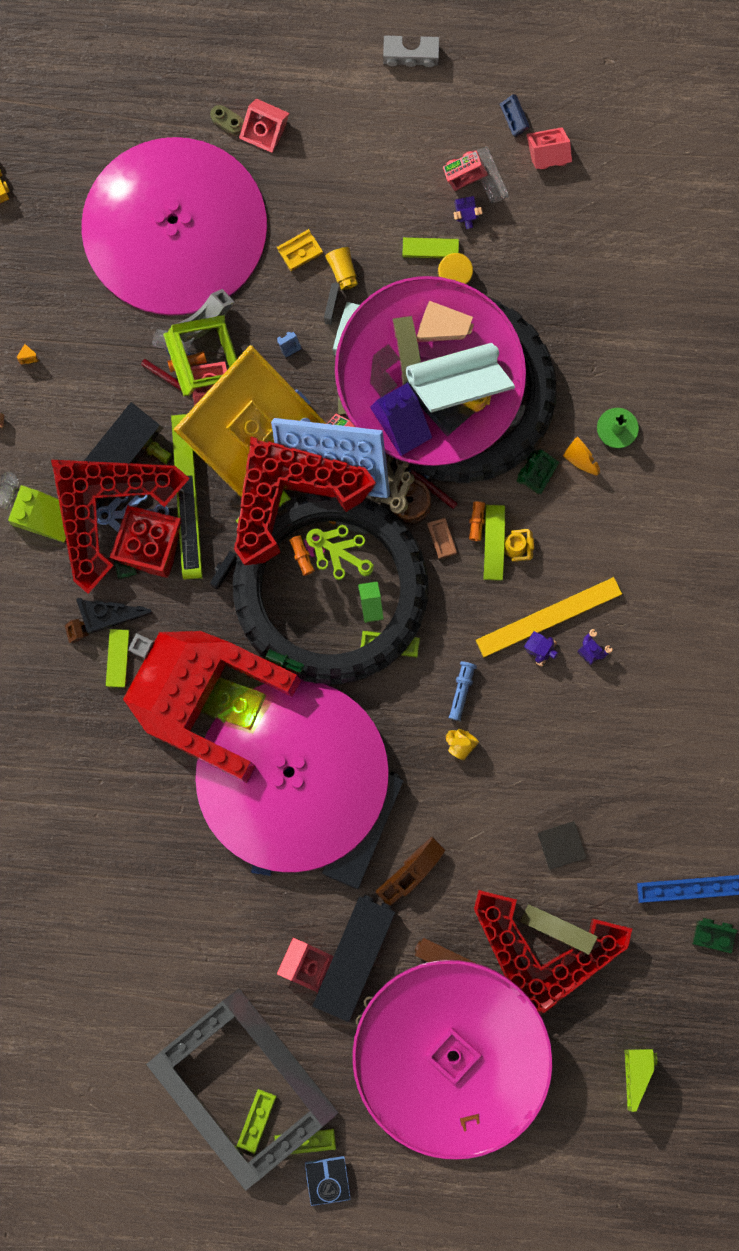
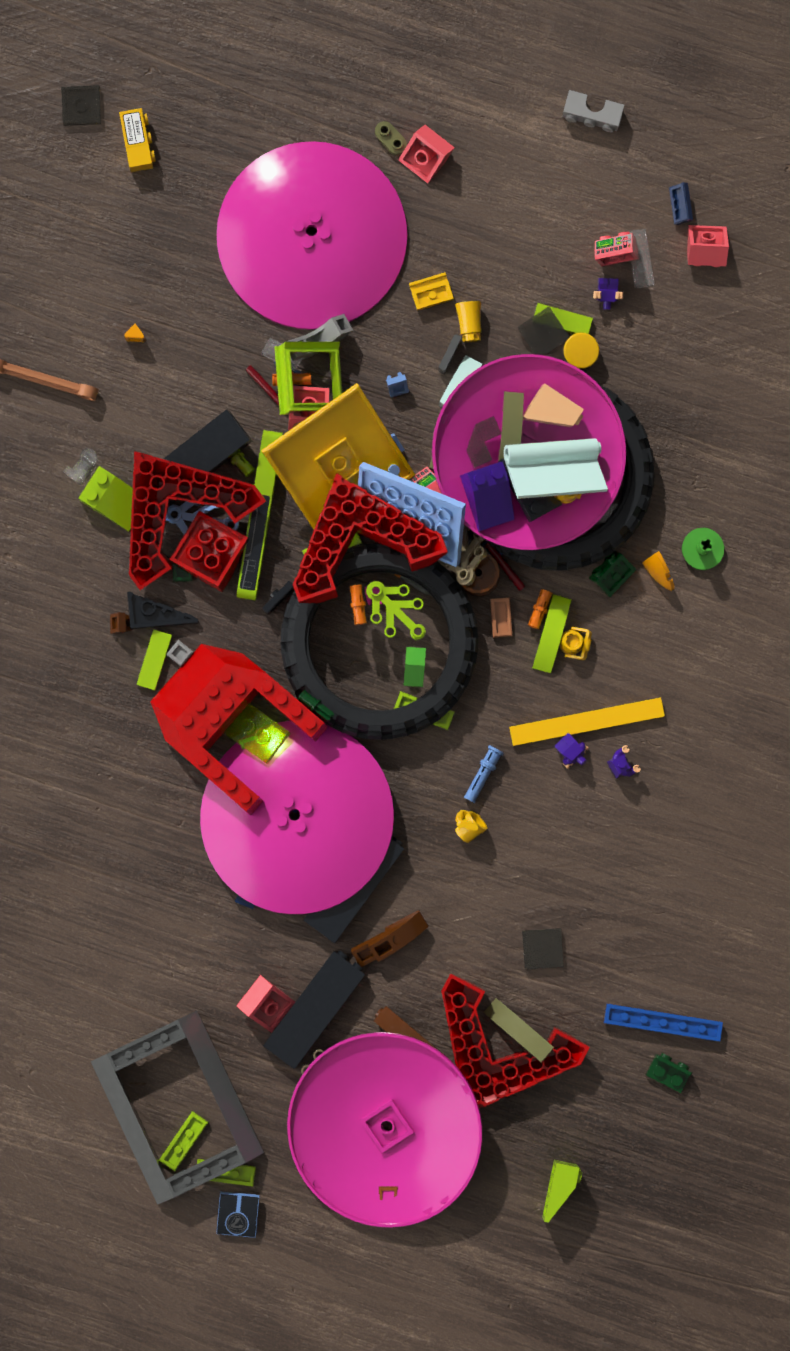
camera: 10 degrees right, 5 degrees up
(415, 260) = (543, 332): none -> clear smoke tile

